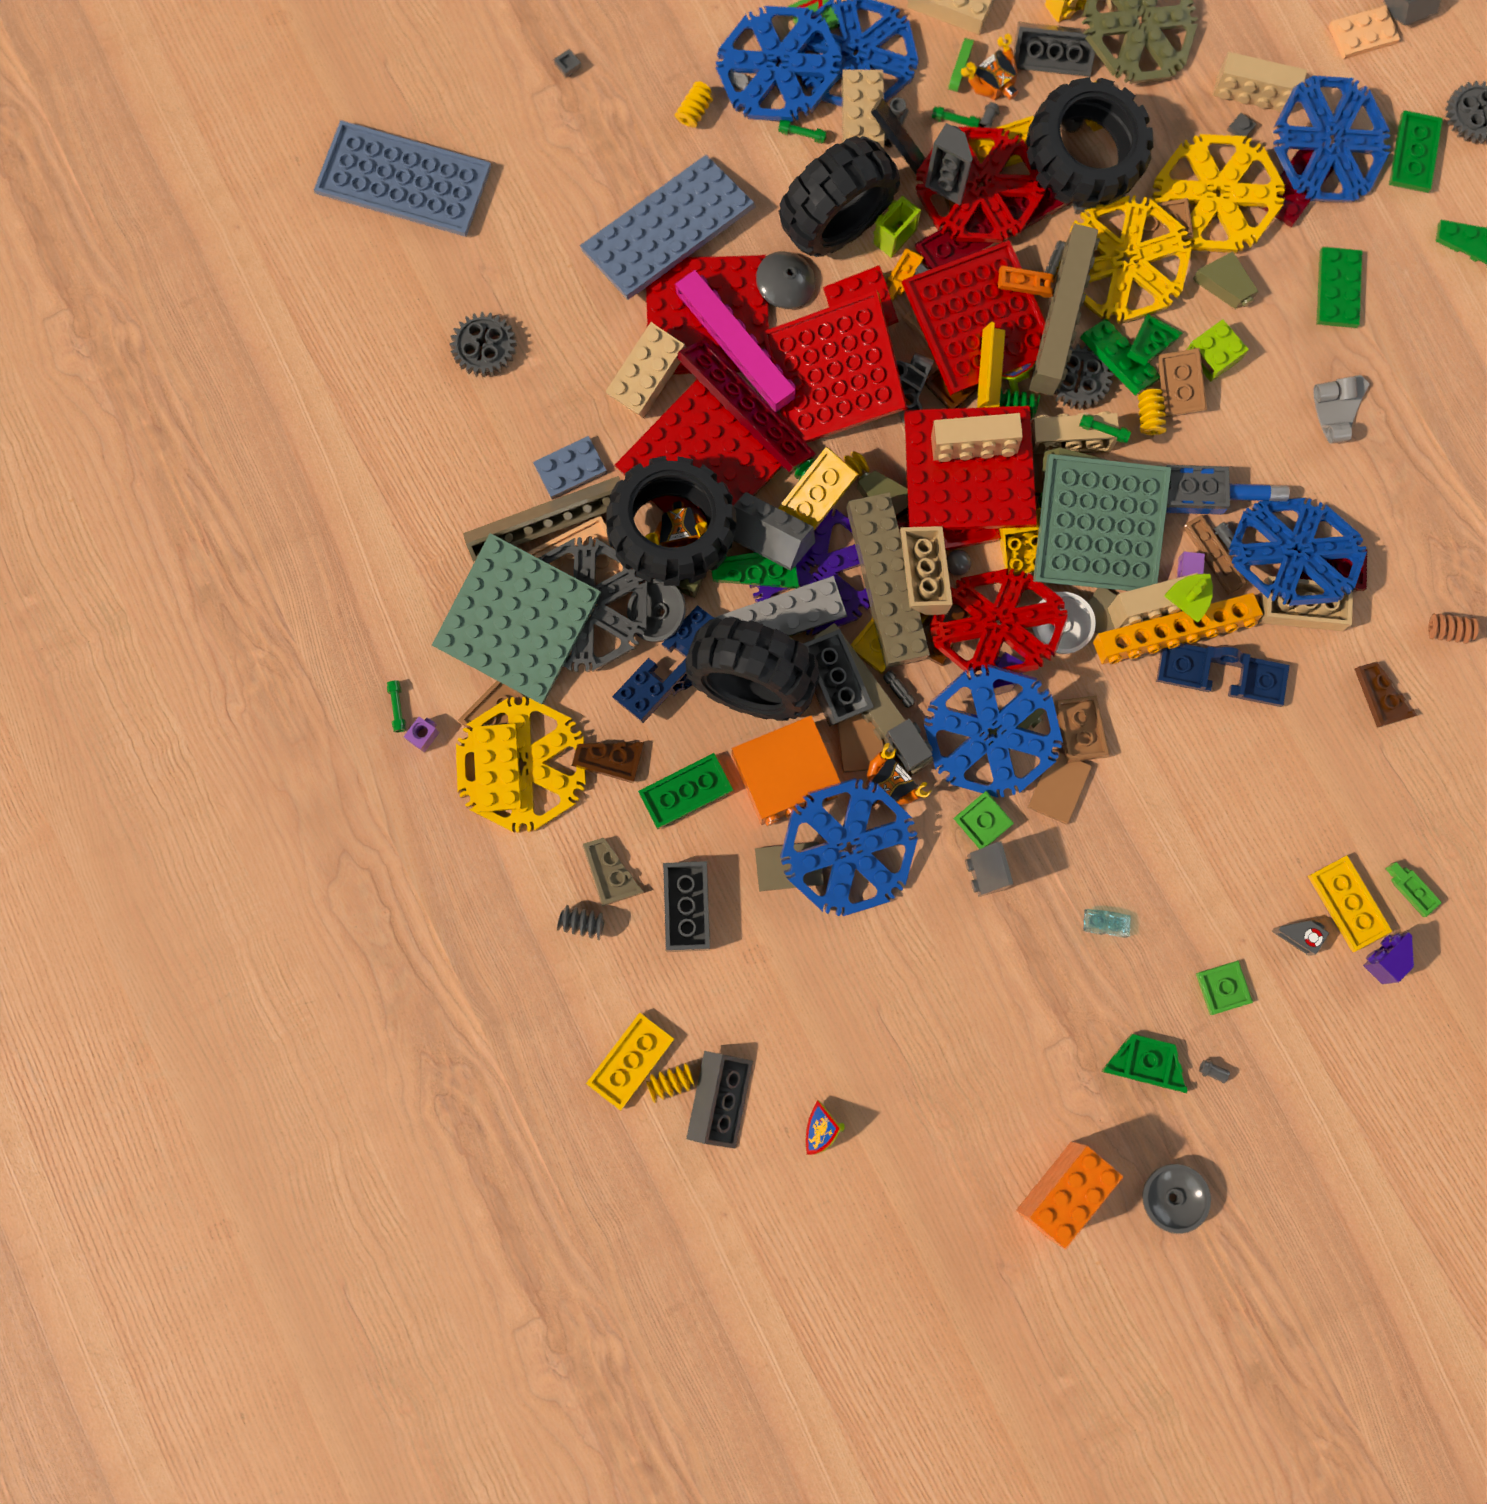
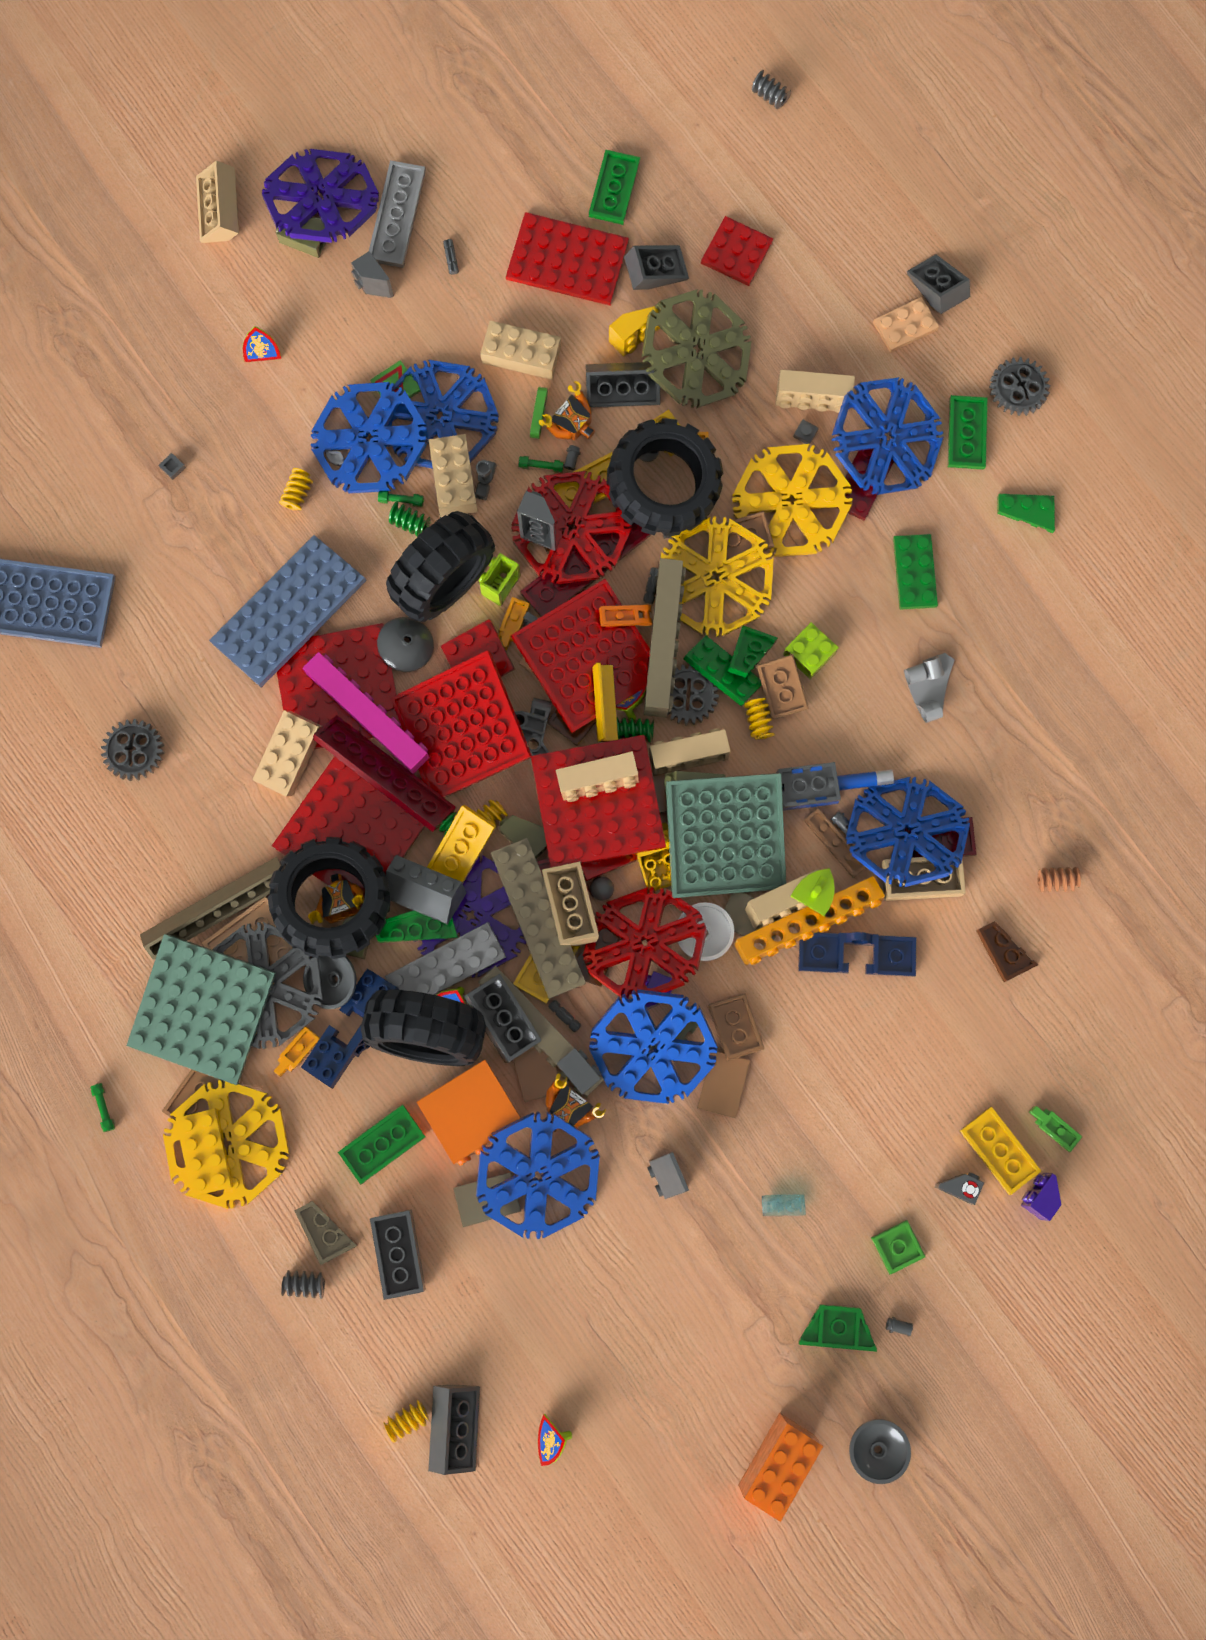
camera: 10 degrees left, 0 degrees up
(424, 742) = (122, 1134): medium lavender brick -> none
(570, 467) = (230, 854): sand blue plate -> none
(609, 680) = (296, 1051): none -> light orange hinge
(611, 760) = (308, 1126): reddish brown wing -> none
(630, 1061) = (367, 1406): yellow plate -> none
(803, 151) = (407, 520): none -> green piece
(898, 135) = (488, 493): black tile -> none
(983, 820) = (658, 1128): bright green tile -> none
(1122, 434) = (732, 750): green bar -> none
(1190, 563) = (814, 858): medium lavender brick -> none
(1227, 281) = (812, 583): olive slope -> none

